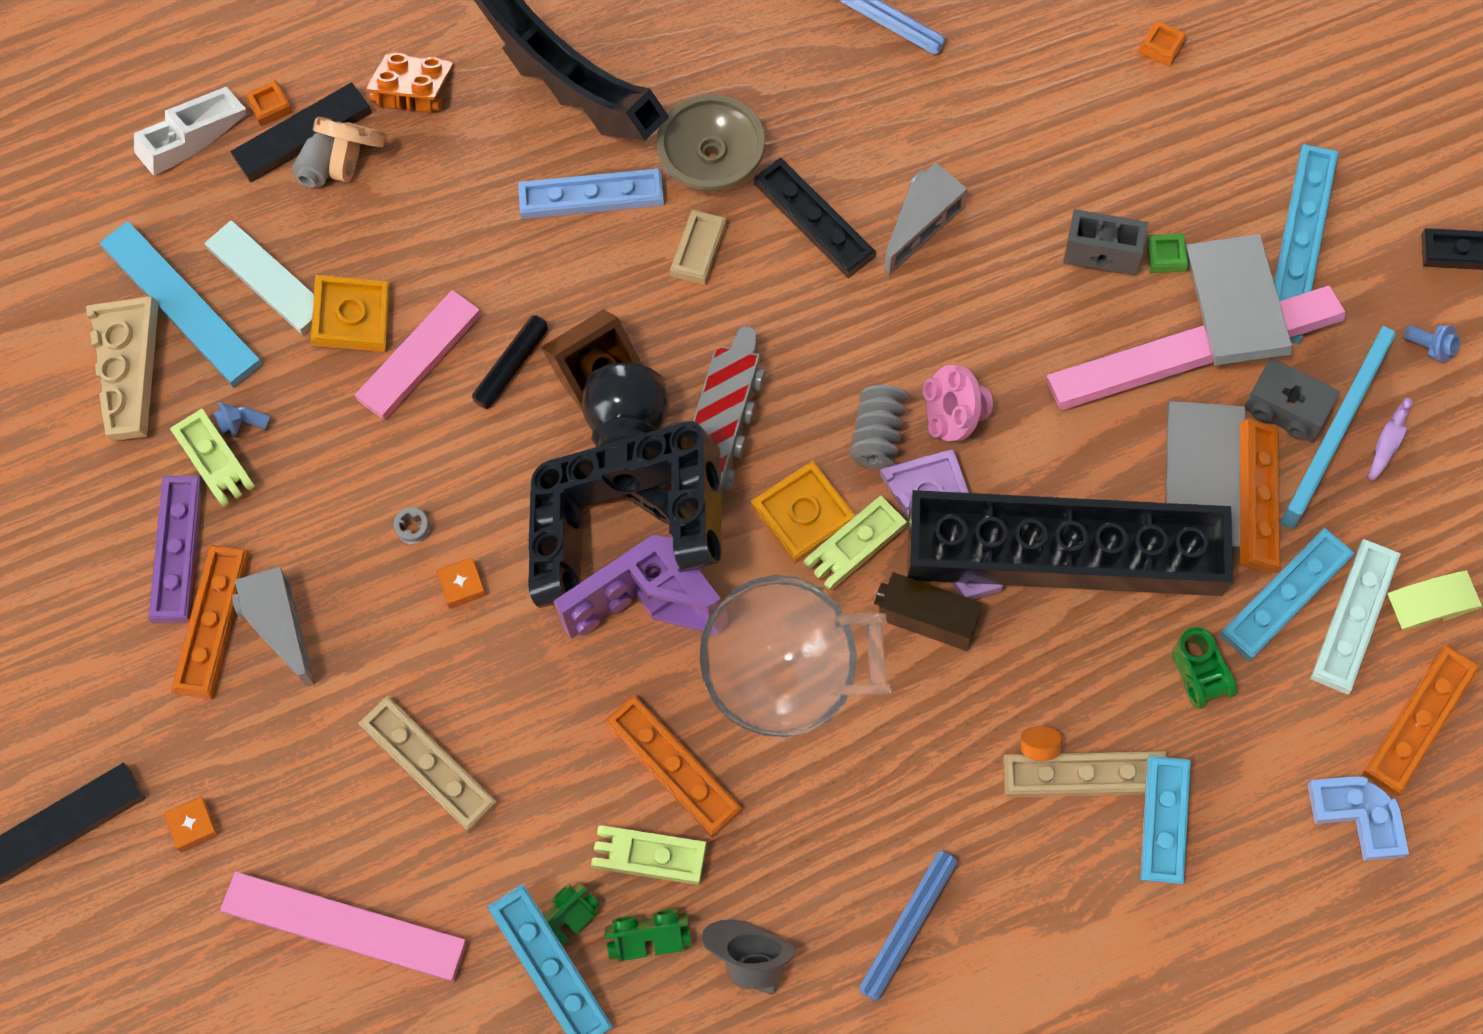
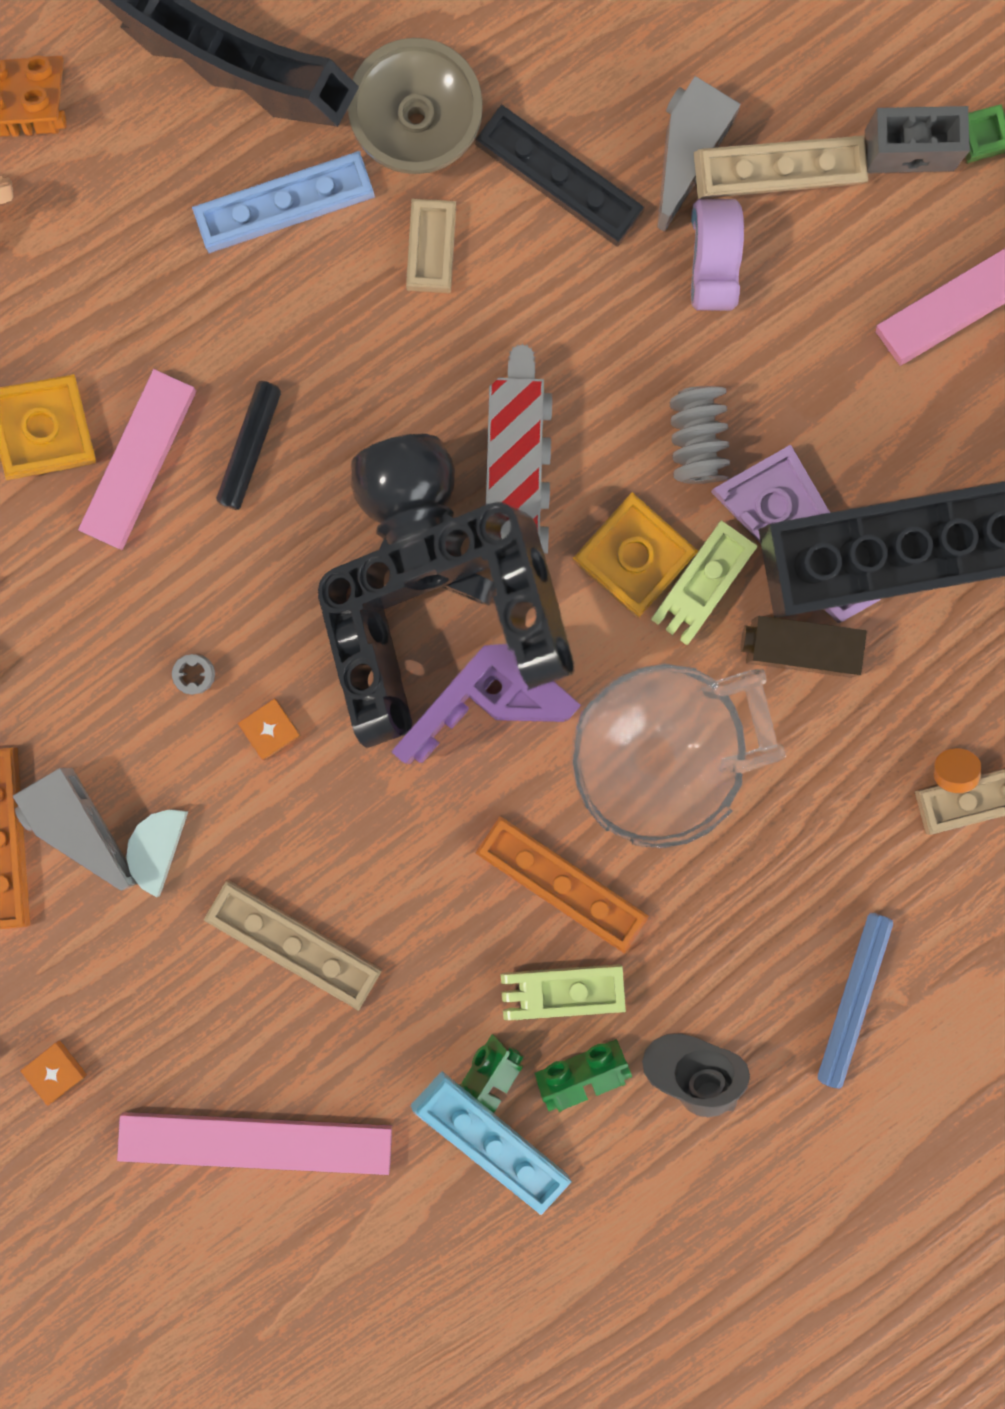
camera: 20 degrees left, 20 degrees up
(336, 655) = (153, 848): none -> light aqua tile
(587, 348) = (346, 417): reddish brown slope -> none
(923, 295) = (716, 254): none -> lavender animal
(955, 403) = (782, 389): bright pink plate -> none
(991, 241) = (780, 166): none -> tan tile

